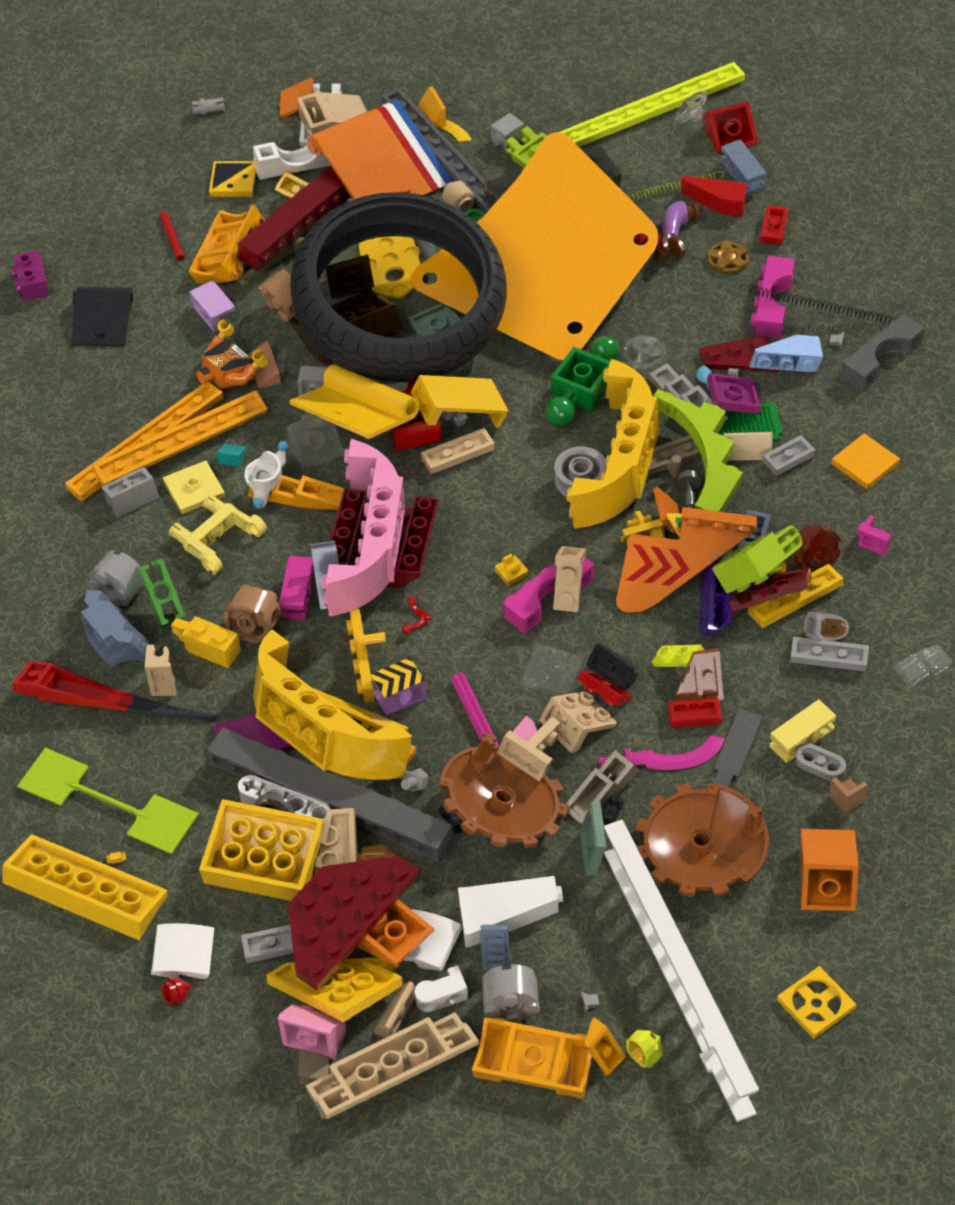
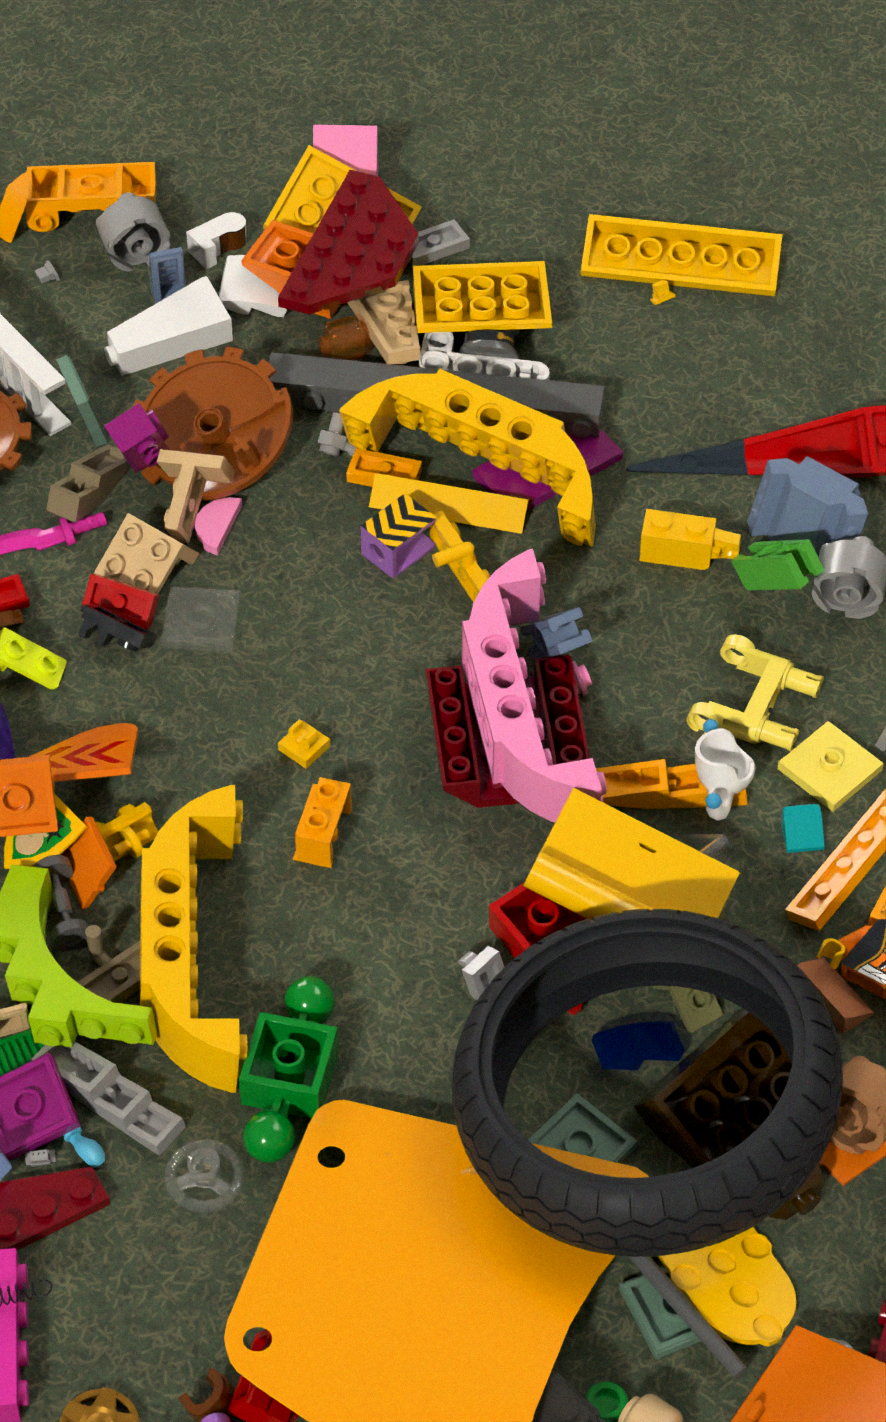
camera: 160 degrees right, 0 degrees up
(158, 824) = (778, 358): lime hinge -> none
(159, 673) = (720, 472): tan hinge -> none
(175, 990) = (518, 182): red plate -> none
(182, 950) = (530, 219): white slope -> none
(252, 613) = (638, 576): medium nougat brick -> none
(296, 588) = (605, 655): dark pink piece -> none
(390, 1063) = (238, 156): tan slope -> none
(396, 1010) = (263, 203): tan slope -> none
(422, 614) = (405, 648): red piece -> none
(457, 451) = (452, 908): tan plate -> none
(458, 395) = (467, 951): yellow panel -> none
(471, 705) = (287, 541): dark pink axle -> none
(517, 510) = (320, 820): none -> light orange window
(524, 606) = (215, 746): dark pink arch -> none
(561, 776) = (138, 437): none -> magenta brick
(568, 578) = (209, 713): tan bracket -> none
(578, 463) = (250, 921): light grey wheel -> none
(610, 811) = (72, 453): black piece -> none

